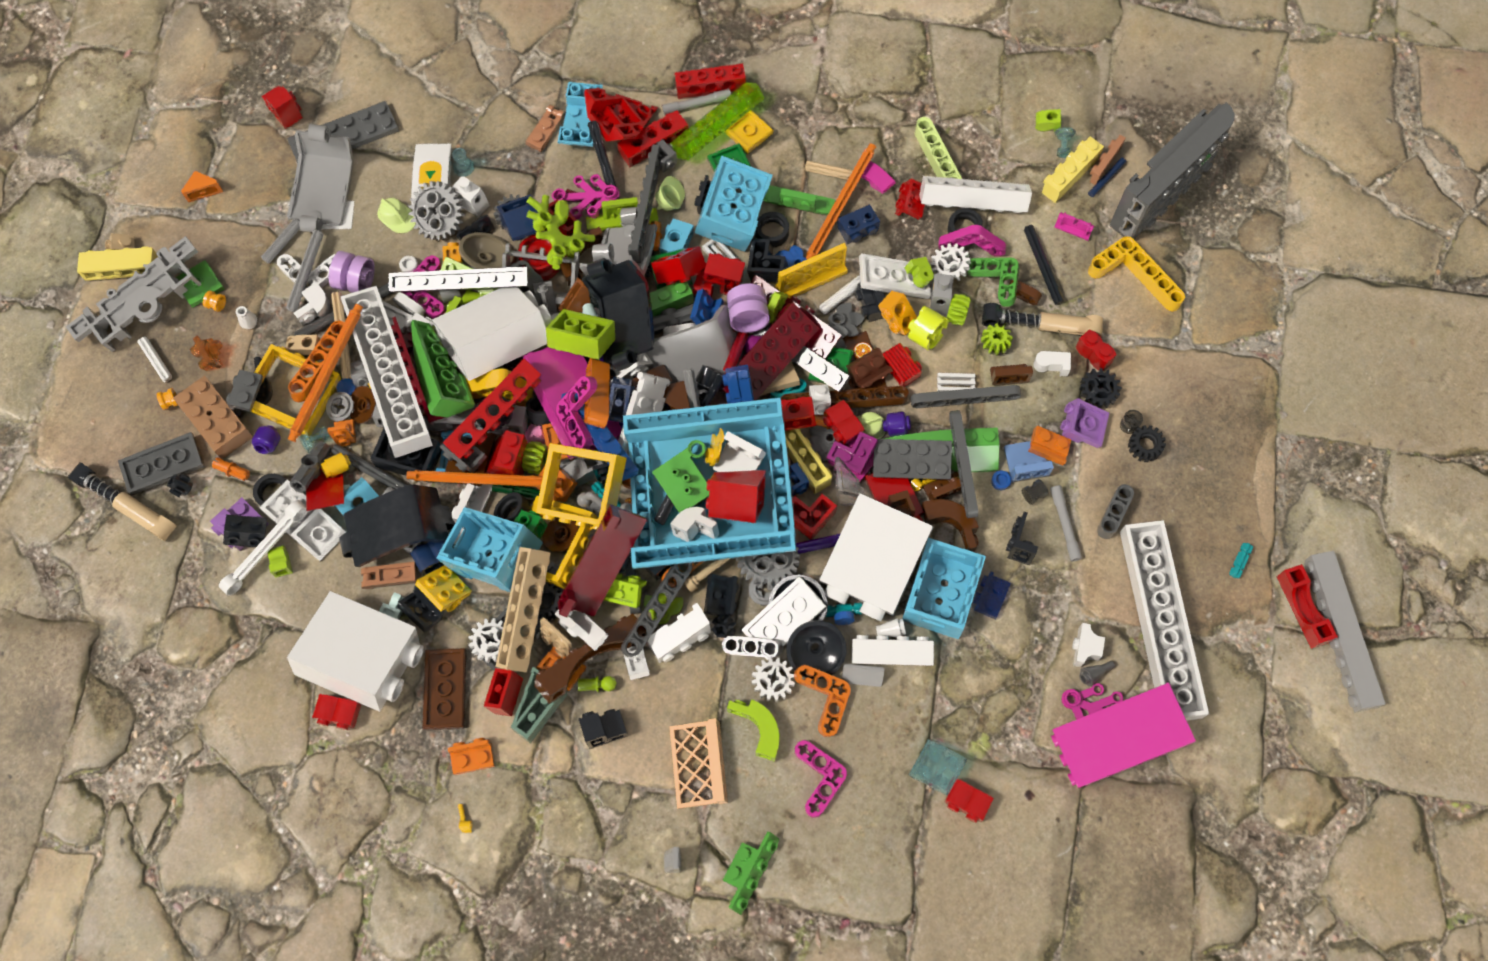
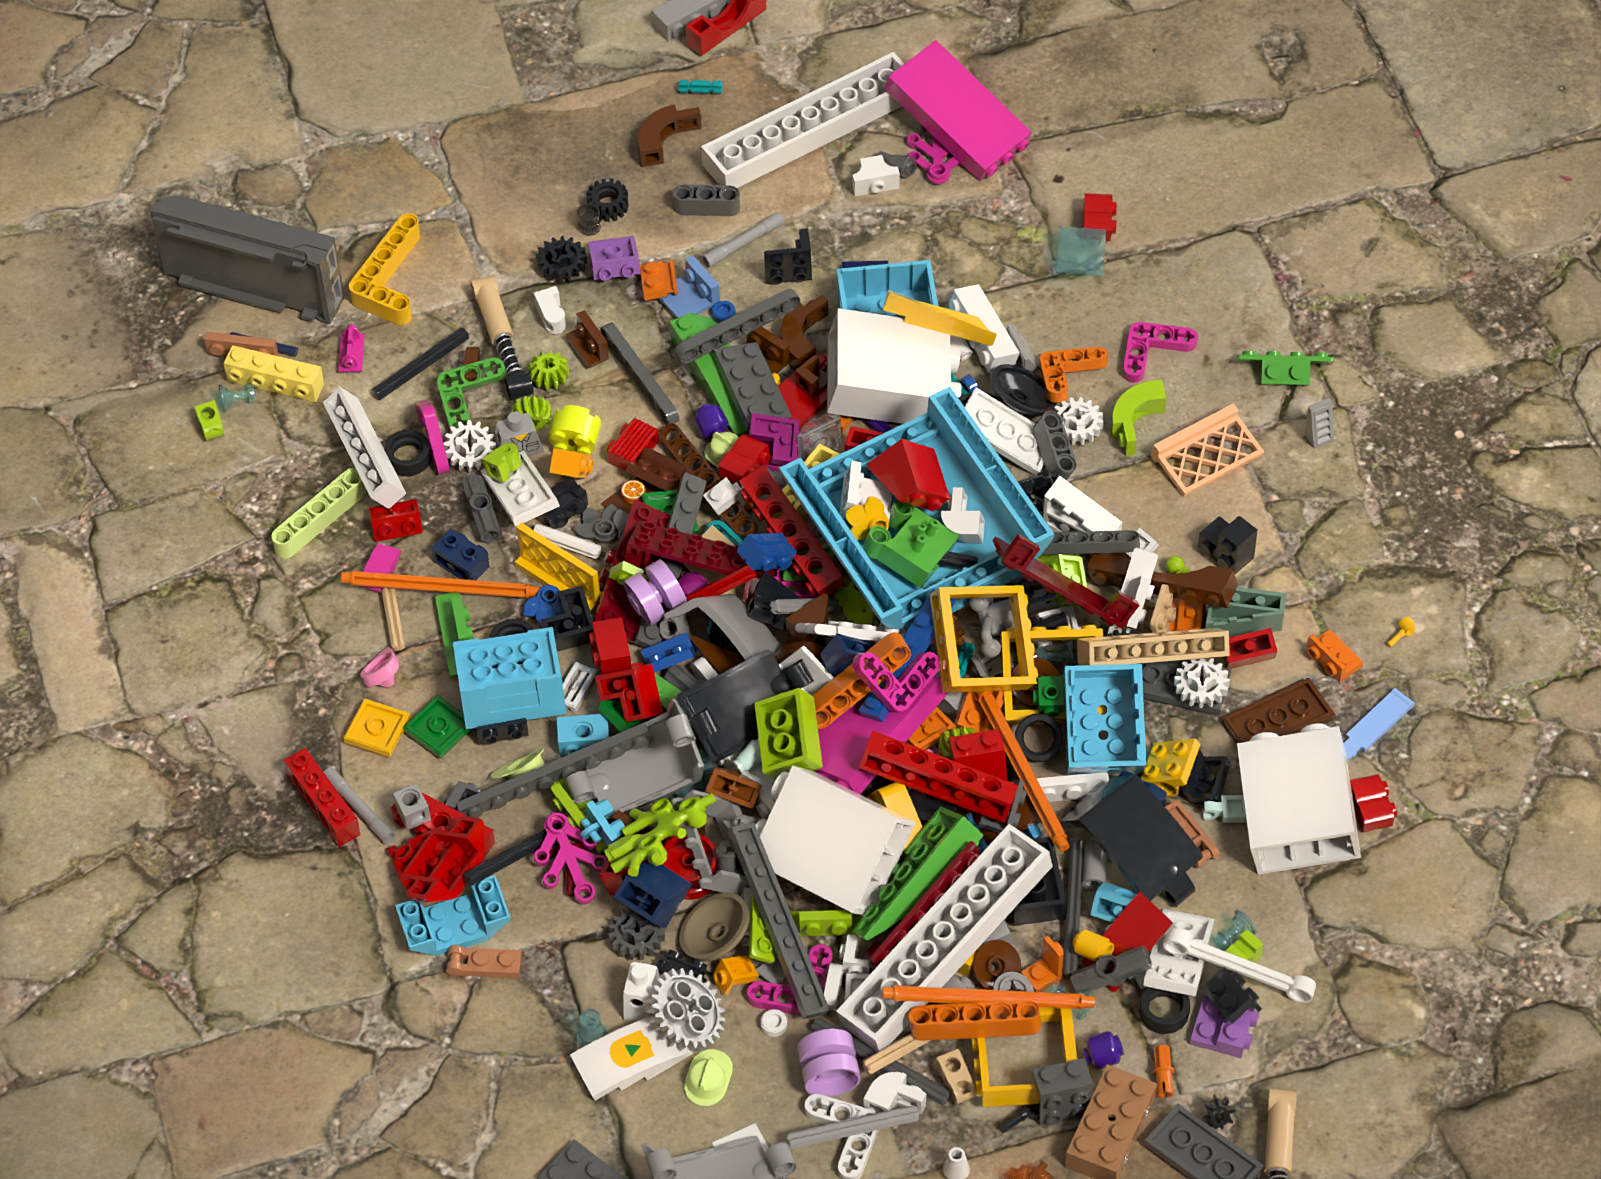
camera: 115 degrees left, 15 degrees down
(298, 571) = (1241, 923): none -> clear light blue piece
(400, 753) = (1377, 723): none -> light blue piece
(592, 213) = (596, 814): none -> medium azure hips
(660, 112) = (414, 814): none -> light grey brick
(717, 121) = (321, 747): clear neon green brick -> none
(792, 147) = (381, 669): none -> bright pink piece
(883, 249) = (481, 508): none -> dark grey piece
(898, 601) = (938, 318): none -> yellow wedge
(955, 379) = (618, 378): white tile -> none
(1035, 491) = (723, 274): clear smoke wheel -> none
(1093, 348) = (515, 275): red brick -> none
(1205, 506) = (662, 125): none -> reddish brown arch

